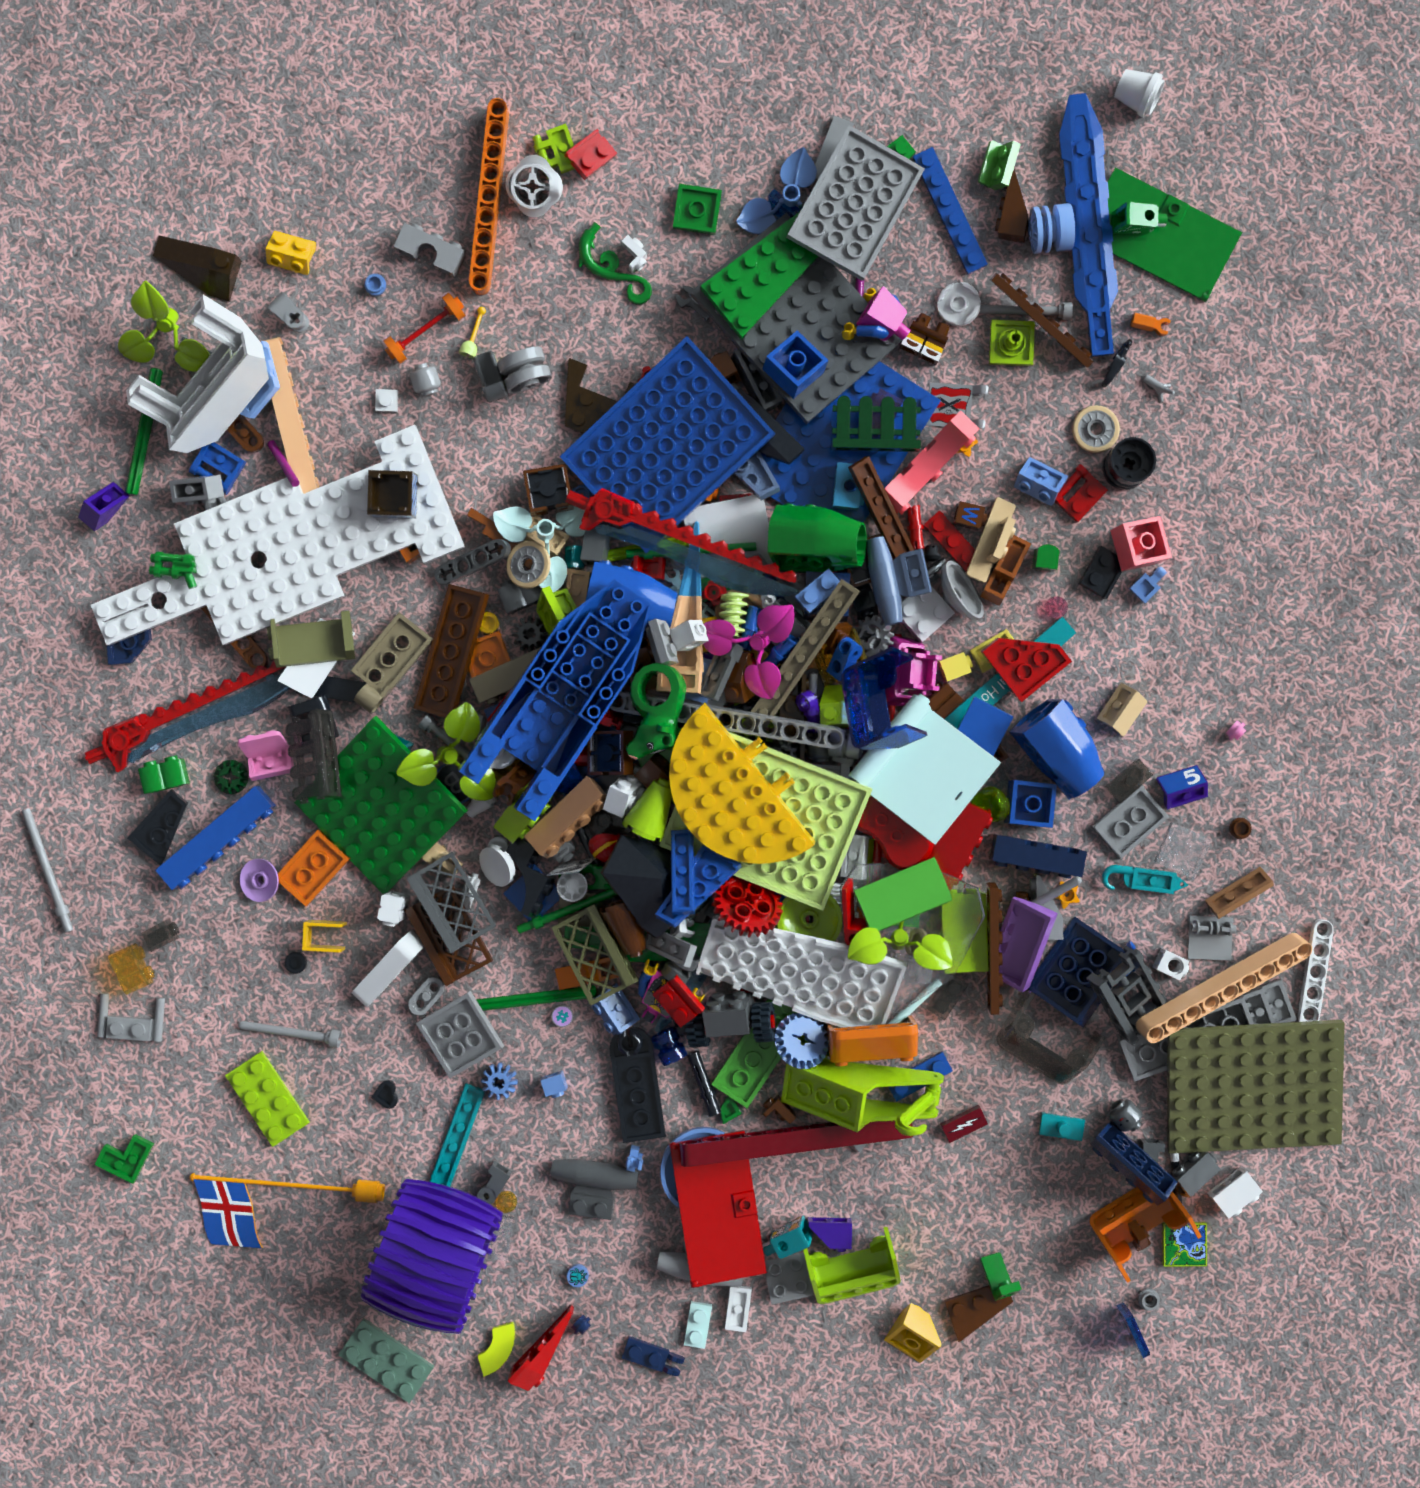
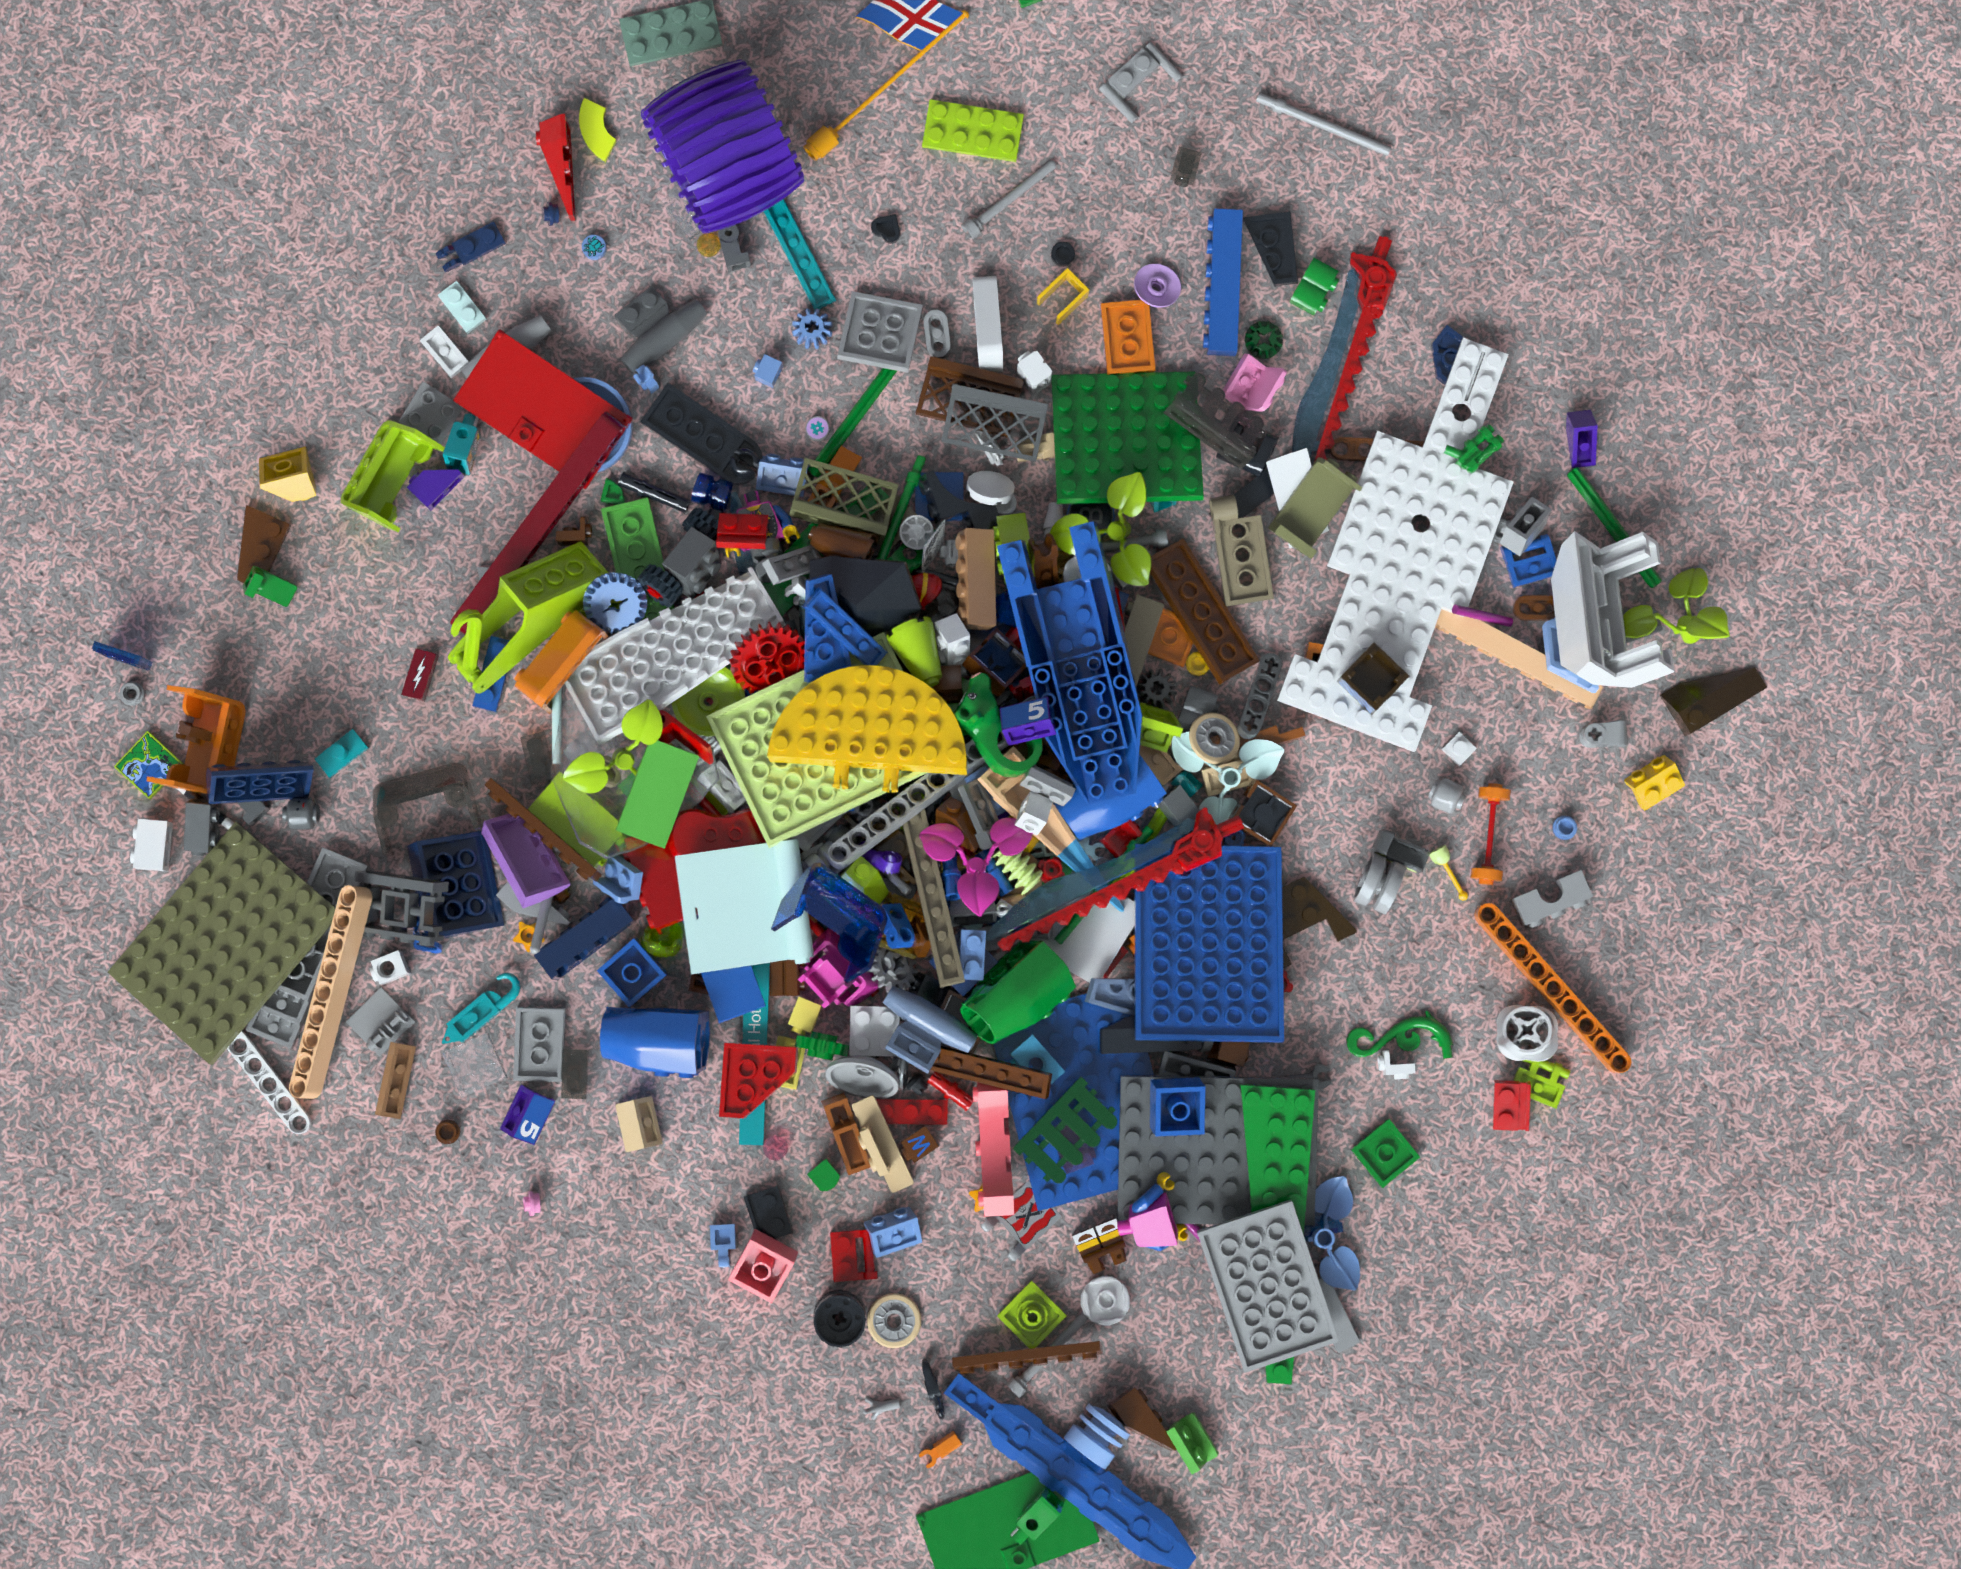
camera: 125 degrees right, 5 degrees down
(131, 968) = (1180, 118): clear yellow brick -> none
(633, 694) = (1027, 721): none -> panel
(950, 211) = (1191, 1367): blue plate -> none
(965, 636) = (822, 1045): none -> green gear
(980, 865) = (621, 880): none -> medium blue bracket

